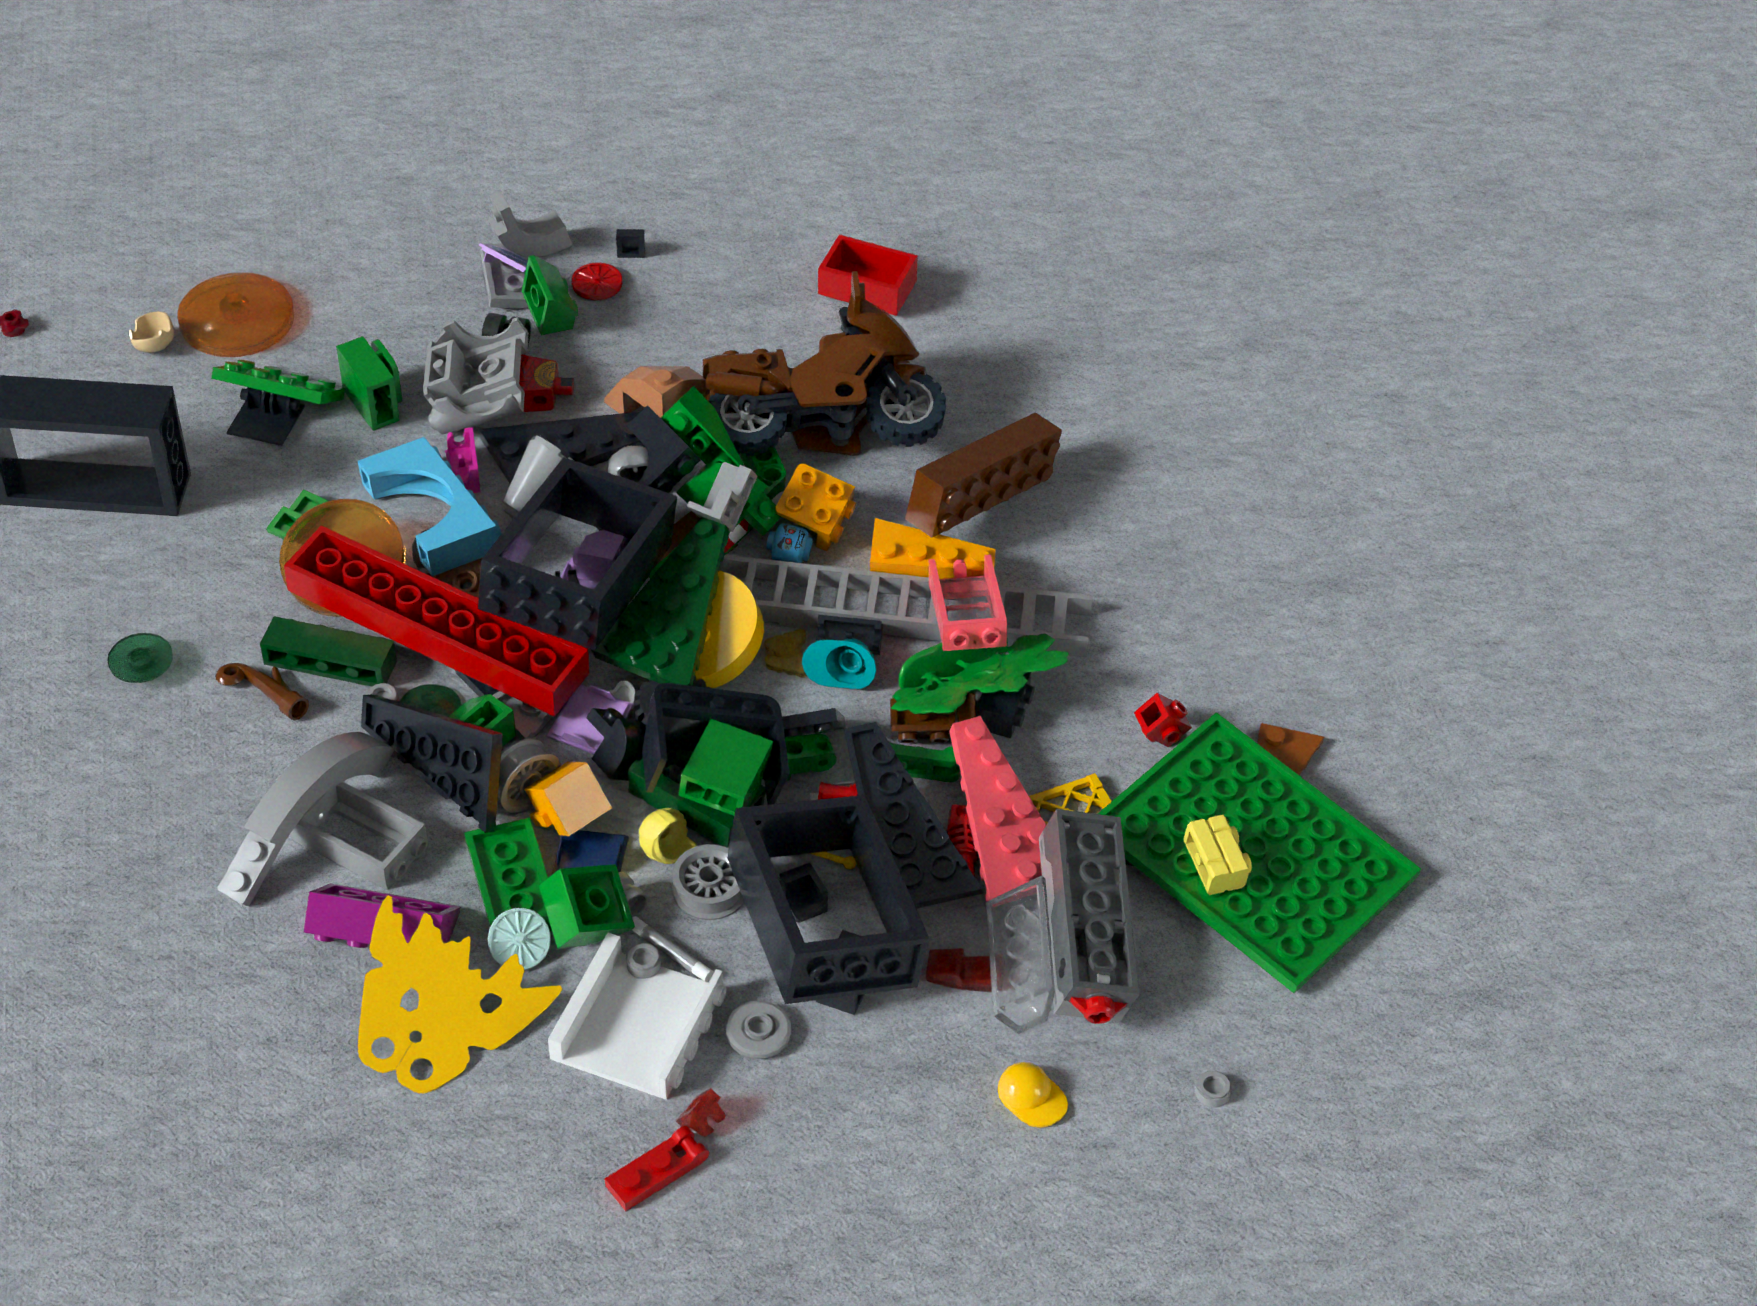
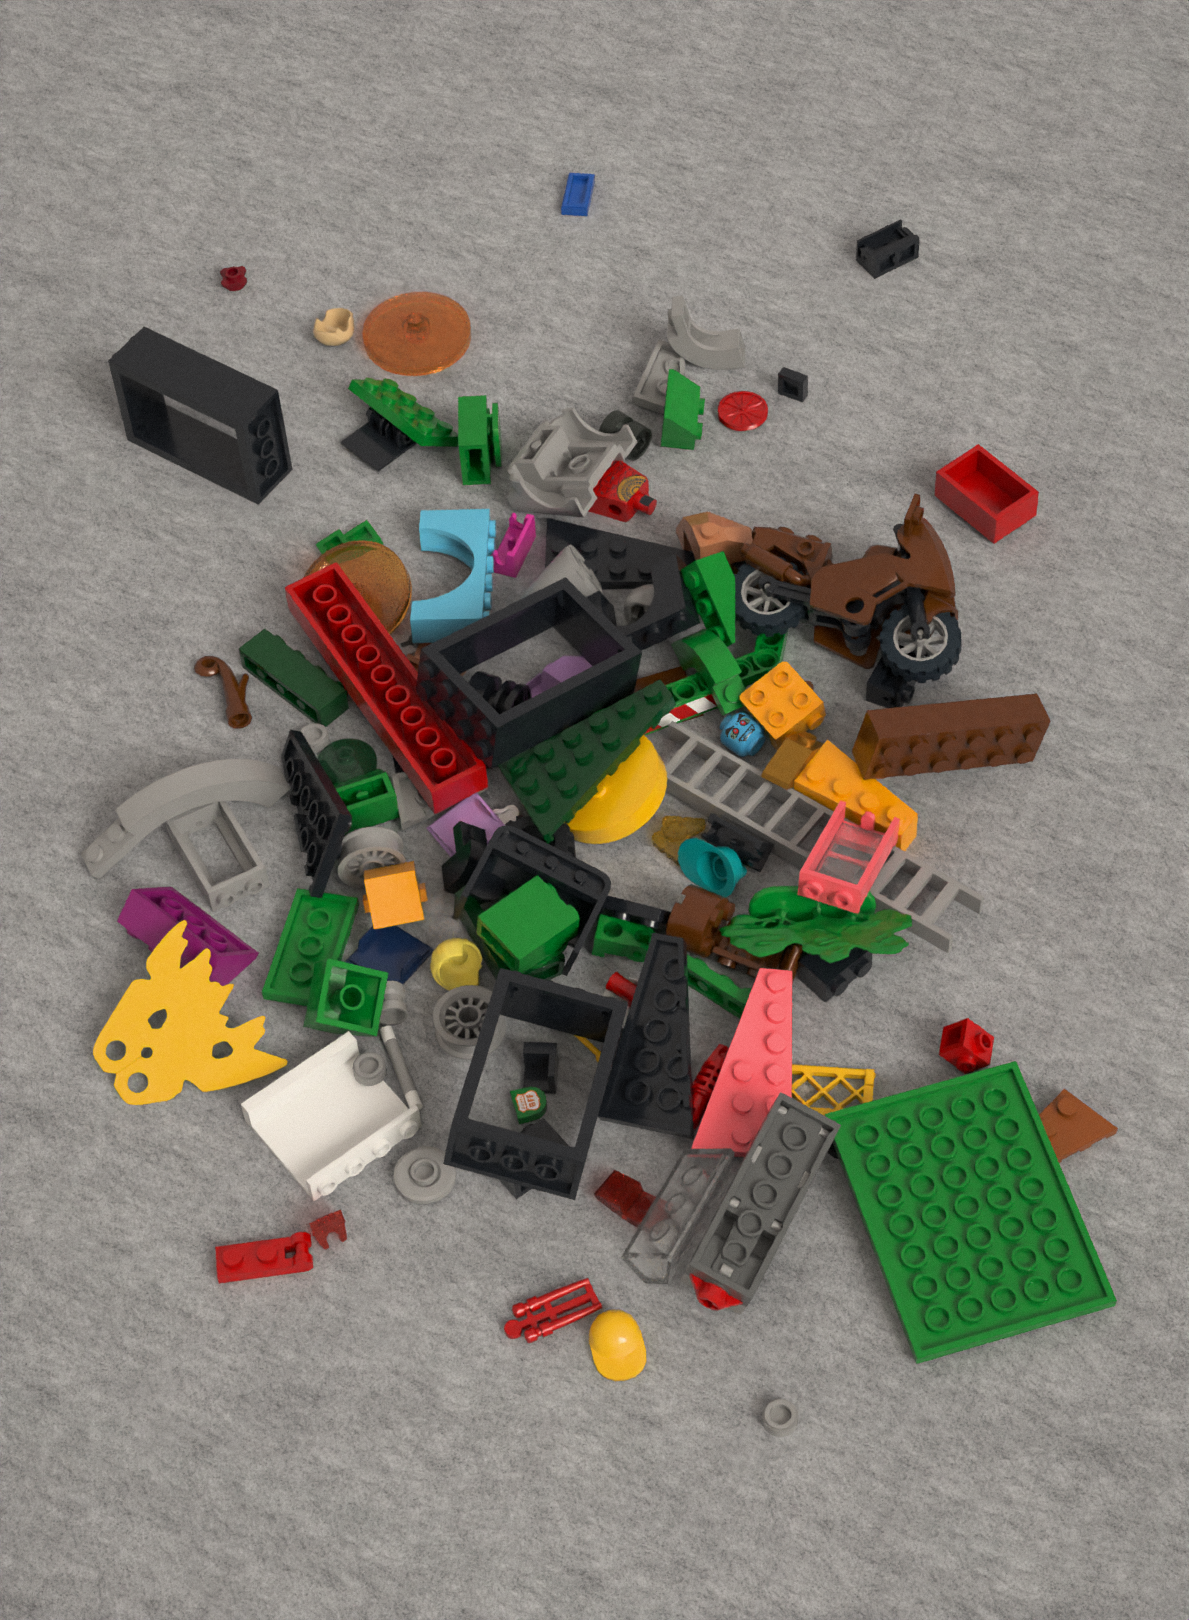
camera: 35 degrees right, 5 degrees up
(140, 657) = (145, 623): clear green dish -> none
(311, 148) = (578, 194): none -> blue tile
(503, 254) = (665, 359): lavender piece -> none
(519, 933) = (282, 1003): light aqua wheel -> none
(637, 107) = (887, 249): none -> black hinge
(727, 495) = (691, 674): light grey panel -> none
(813, 926) = (528, 1104): none -> green tile
(855, 545) = (791, 759): none -> pearl gold slope
(866, 703) = (700, 919): none -> reddish brown brick
(890, 461) = (887, 689): none -> black hinge
(931, 1123) = (514, 1328): none -> red piece
(1217, 854) = (917, 1199): light yellow brick -> none

